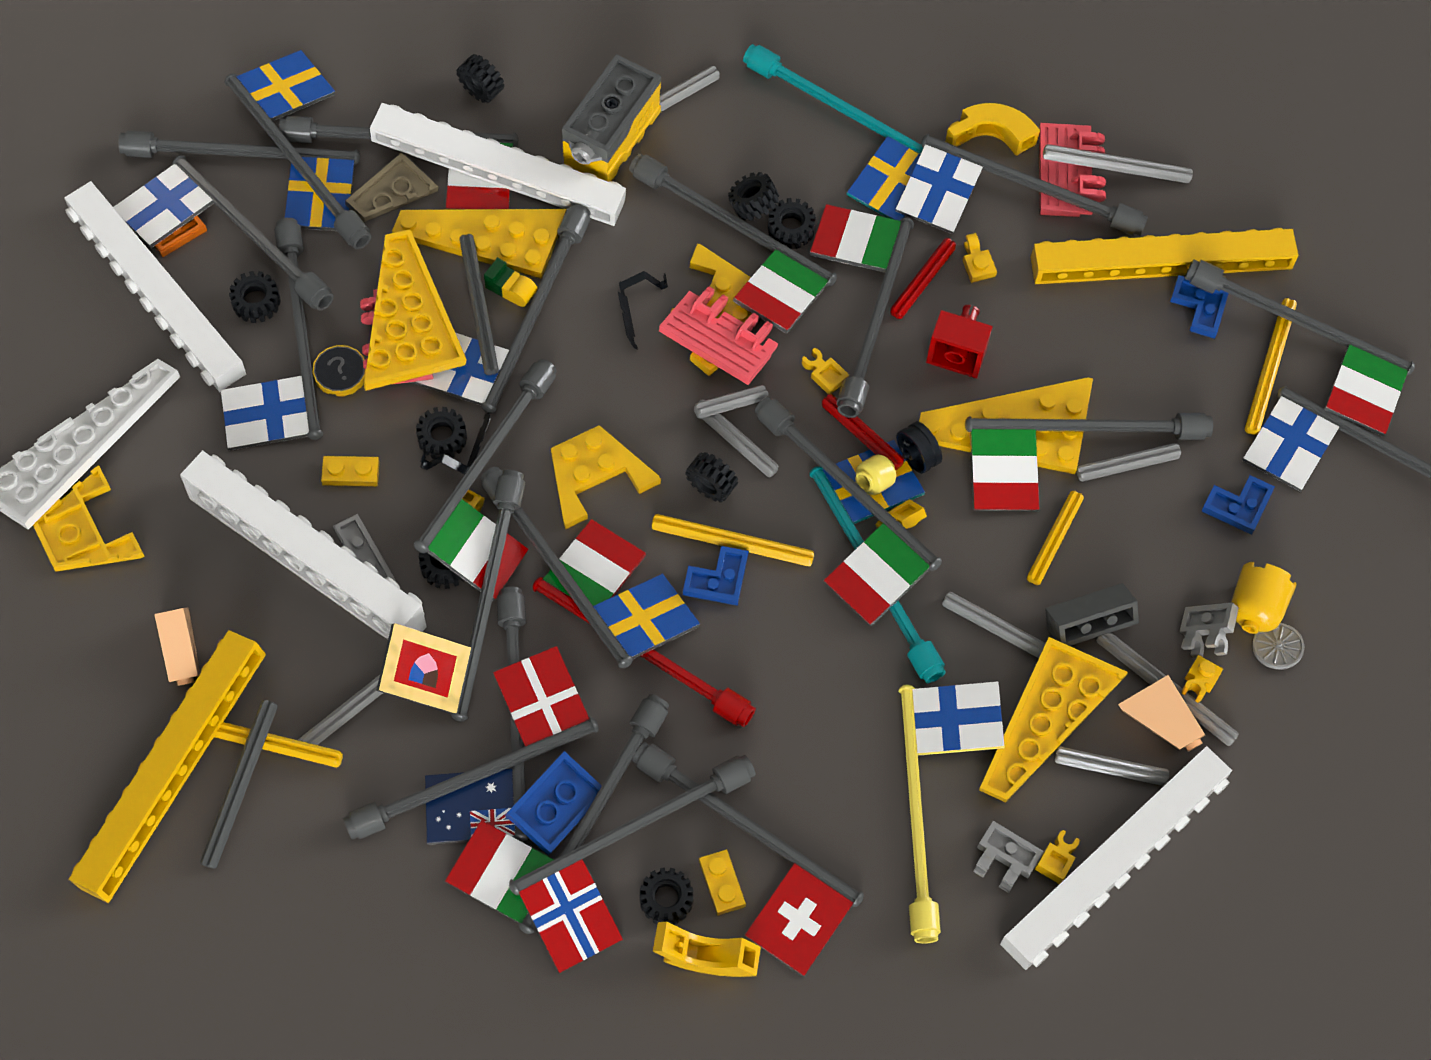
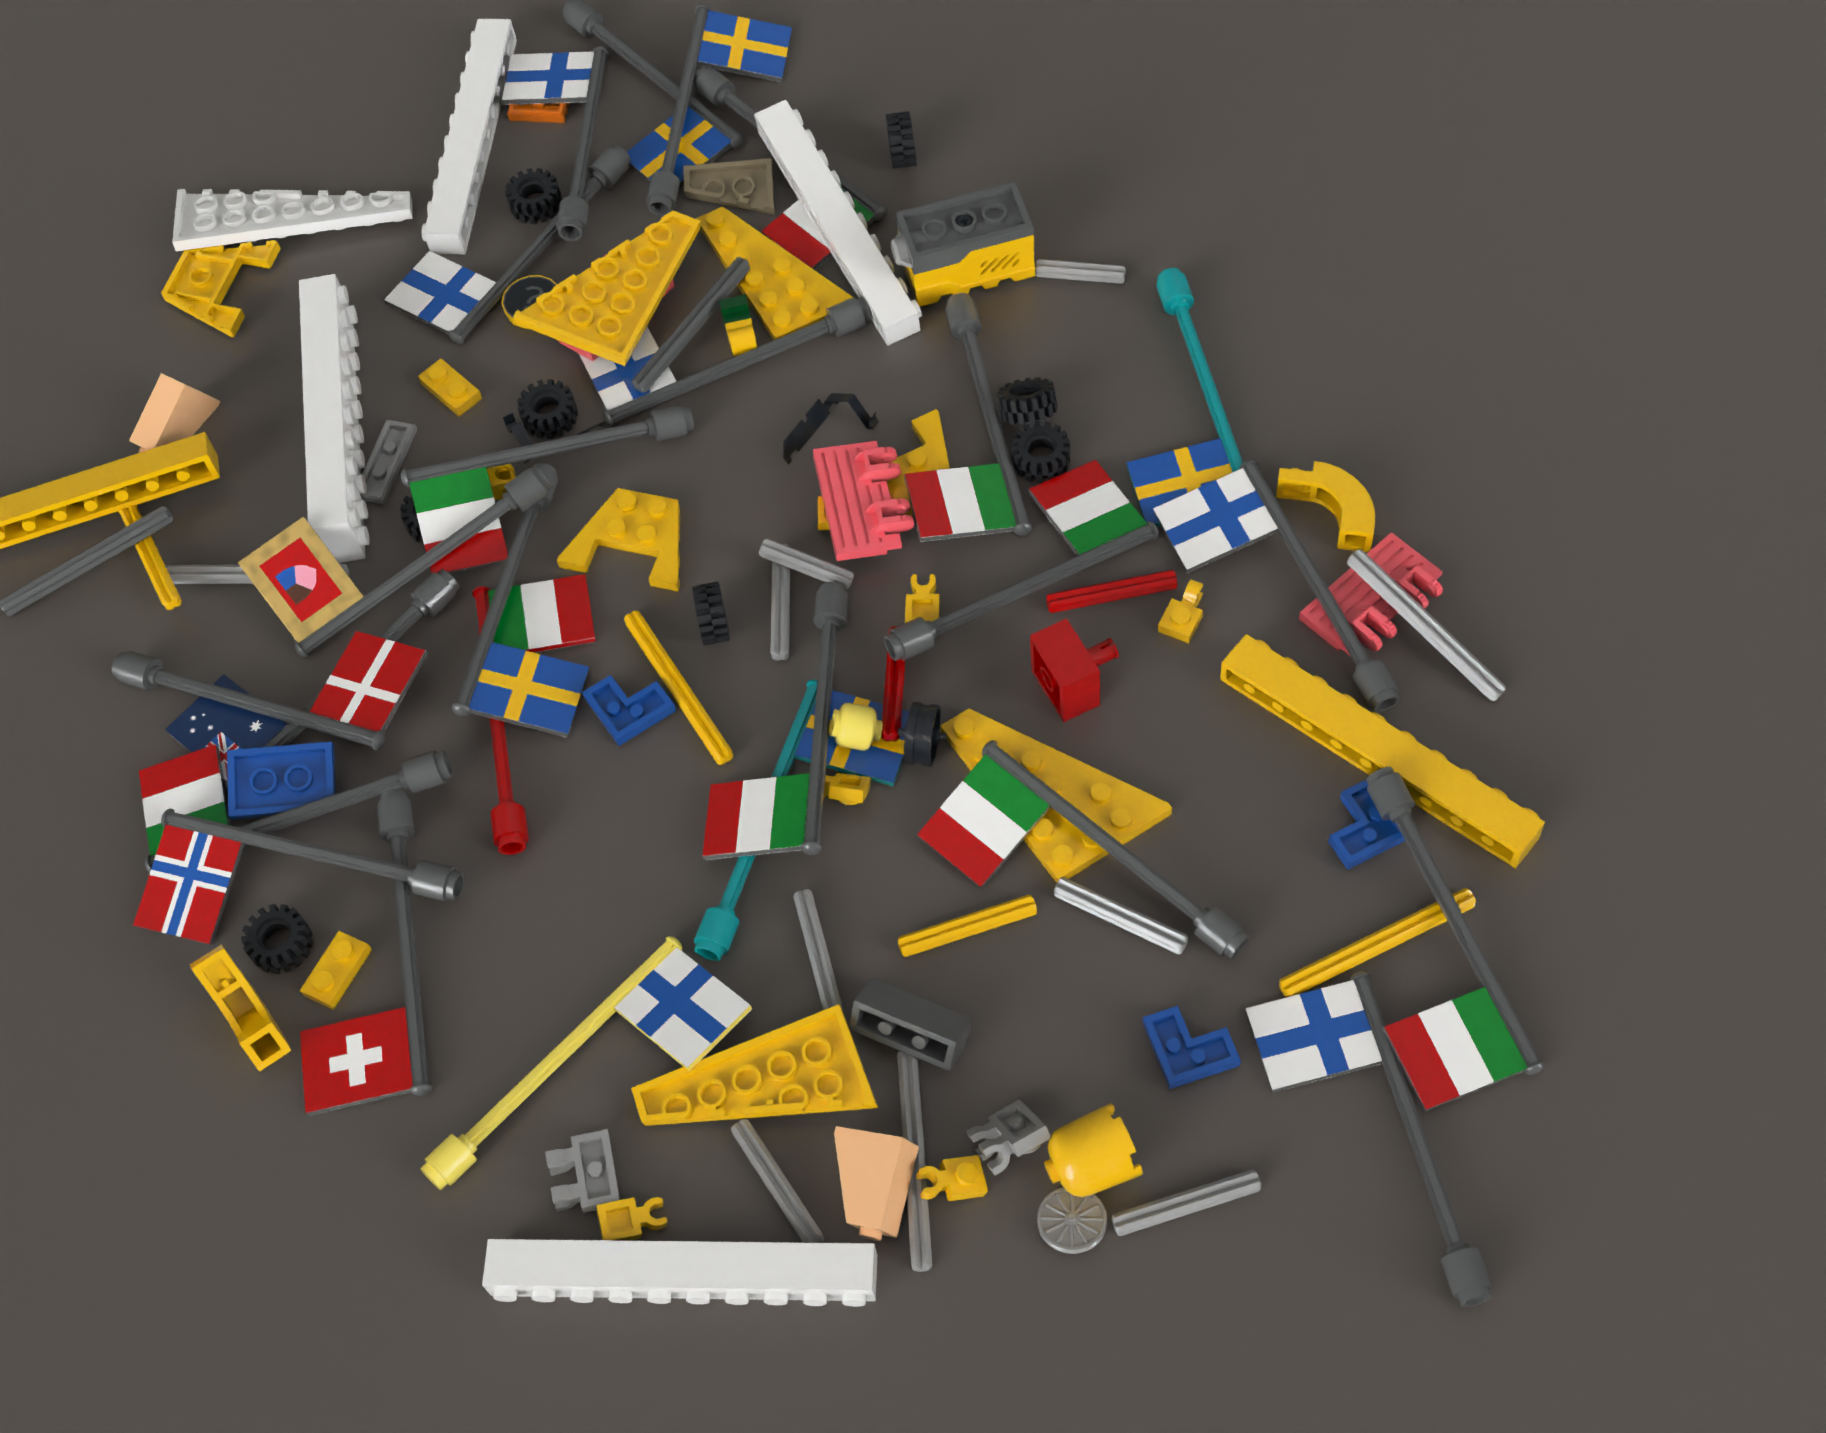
camera: 55 degrees right, 5 degrees down
(1322, 586) = (1186, 1202): none -> light grey axle

